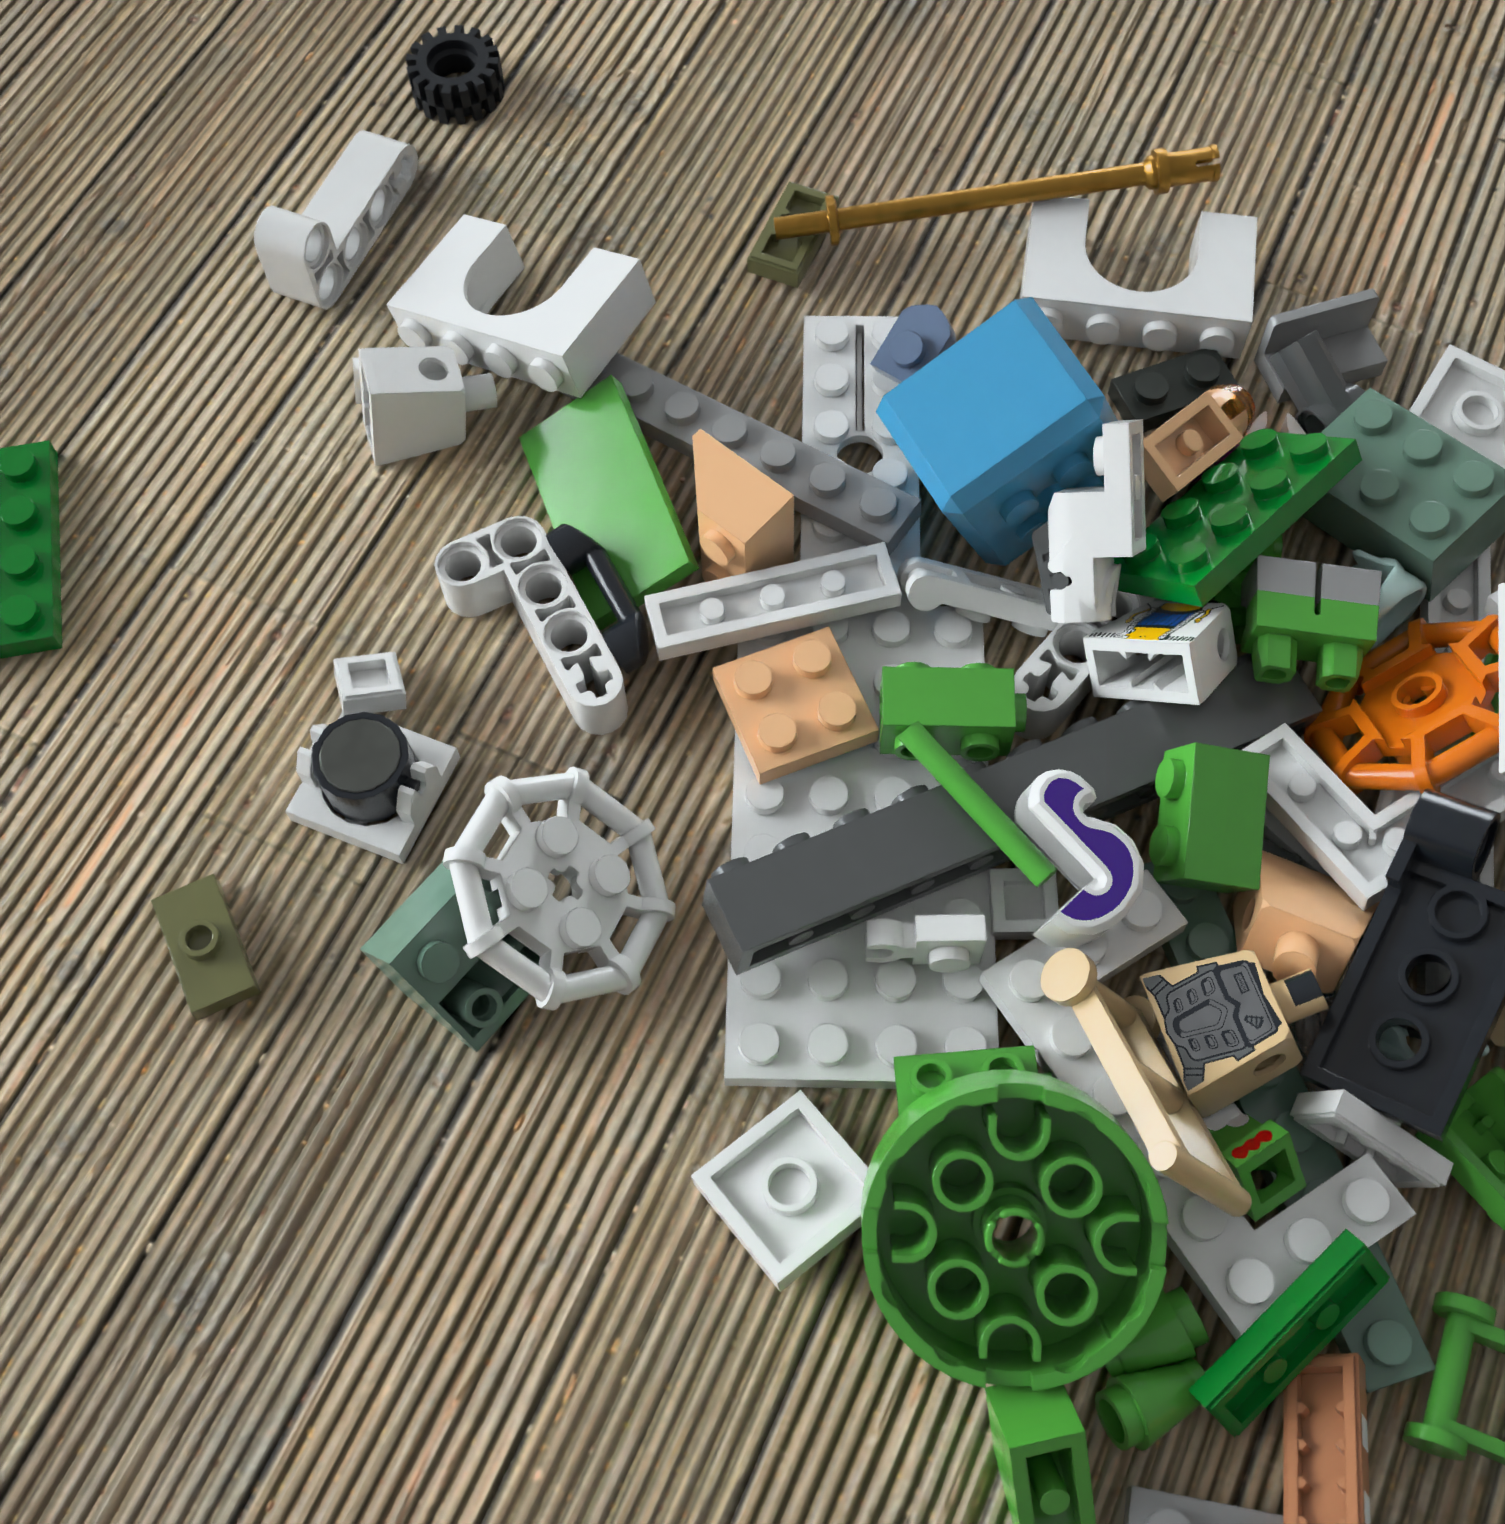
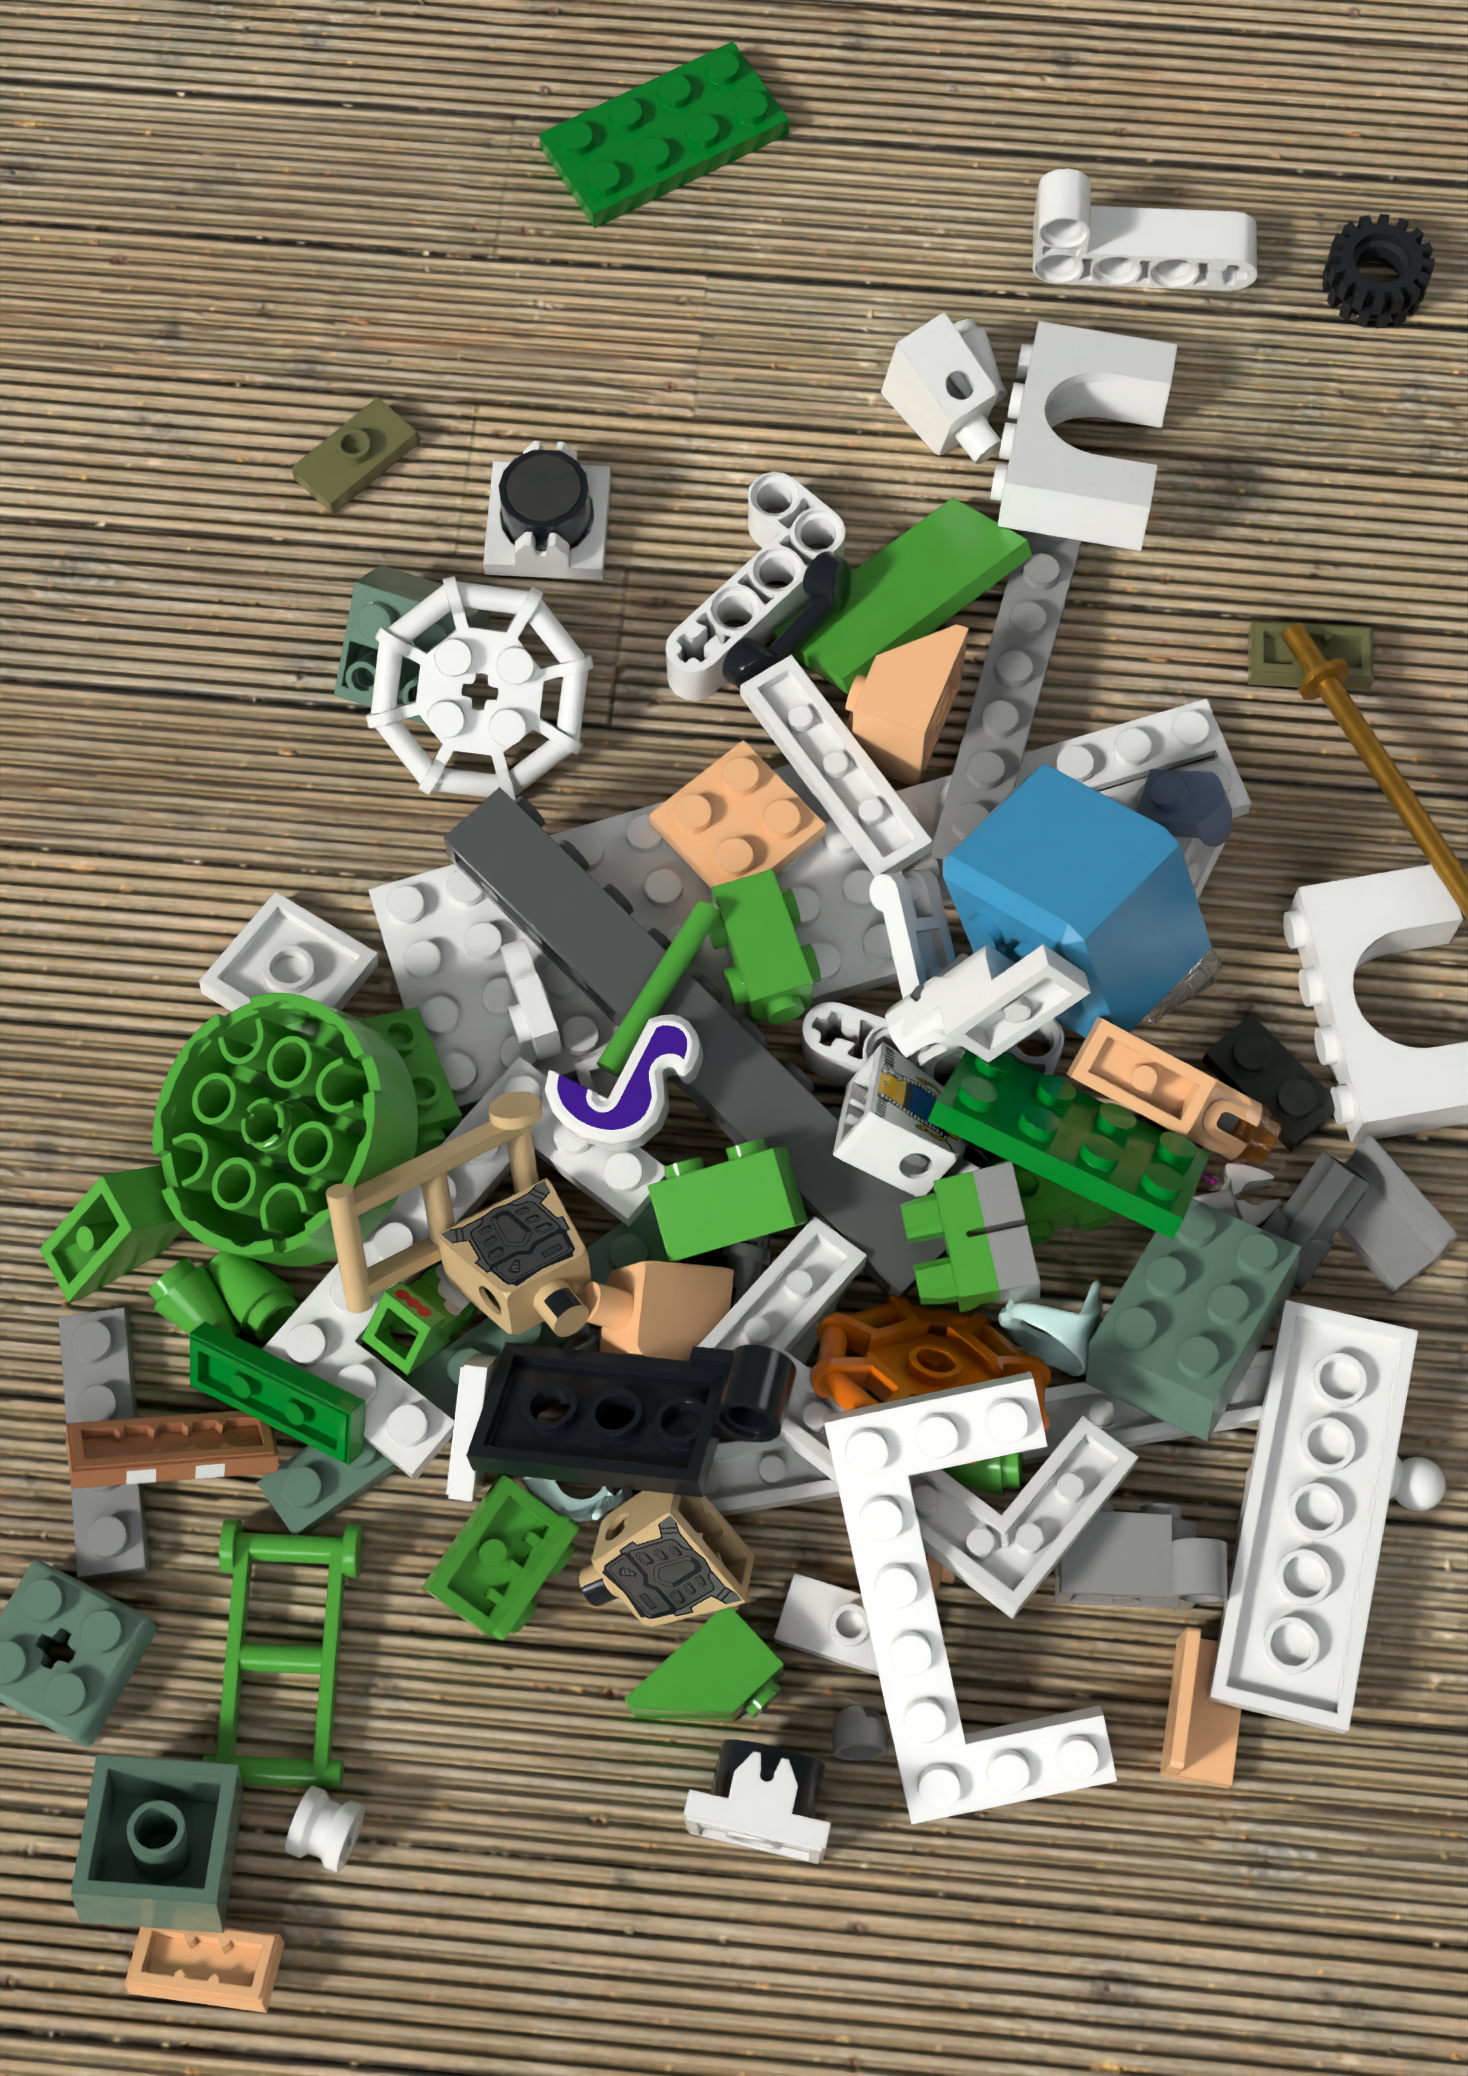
camera: 70 degrees right, 5 degrees up
(369, 683) = (639, 476): white tile -> none

